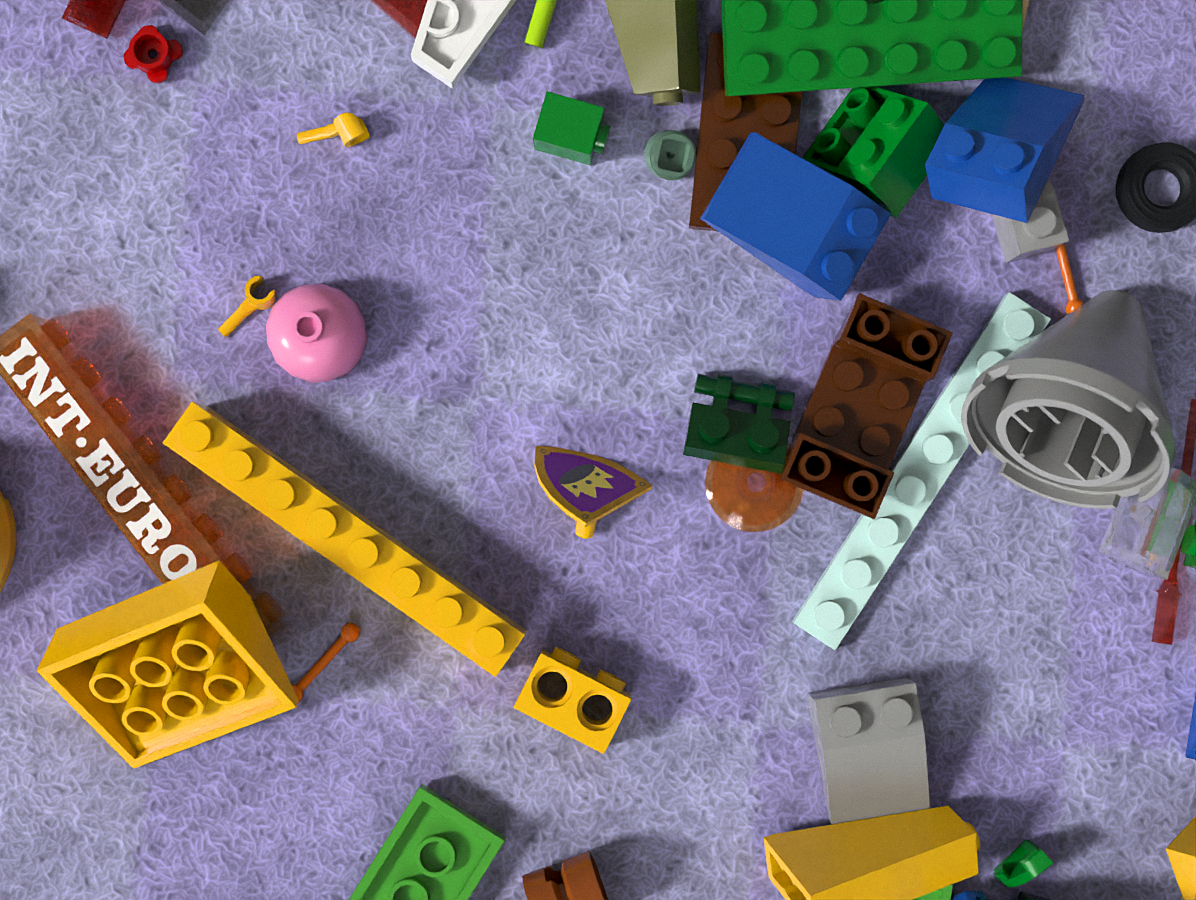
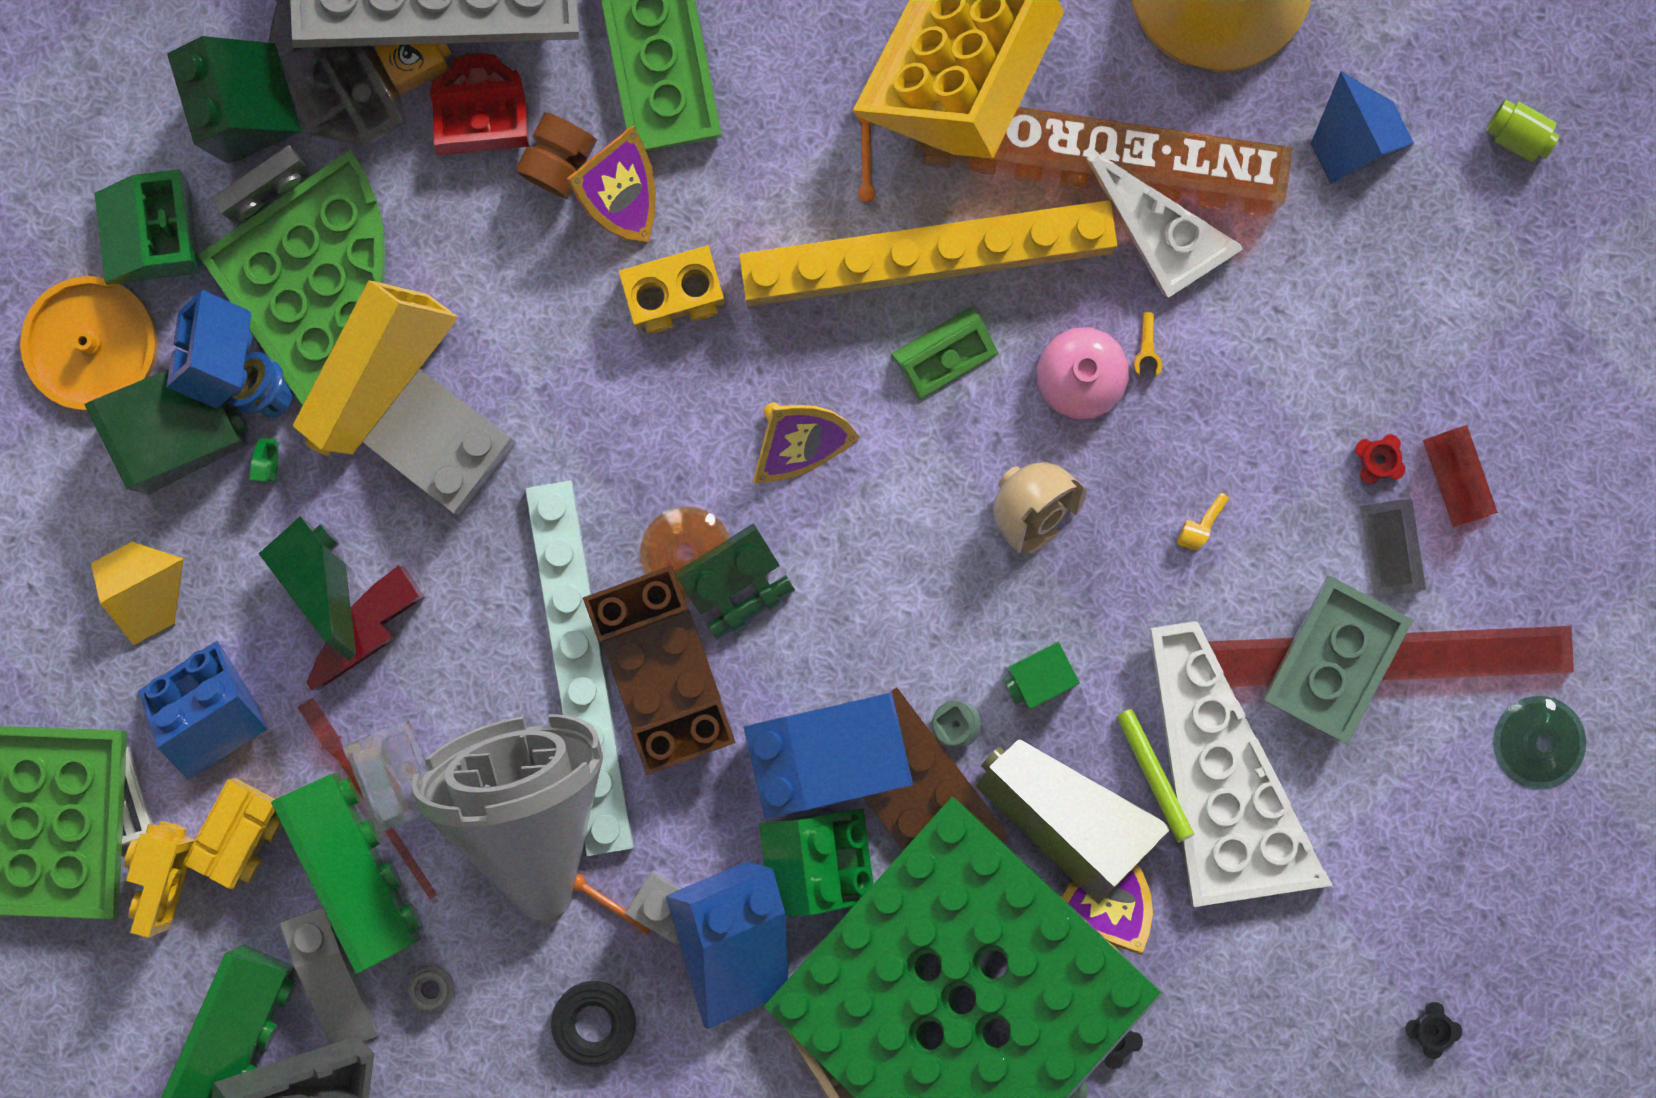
camera: 135 degrees right, 0 degrees up
(147, 374) = (1168, 237): none -> white wing
(407, 449) = (945, 353): none -> bright green slope
(449, 264) = (1034, 502): none -> tan cylinder
(541, 821) = (619, 187): none -> shield
(1062, 658) = (370, 617): none -> dark red slope
(1076, 729) = (315, 580): none -> dark green slope

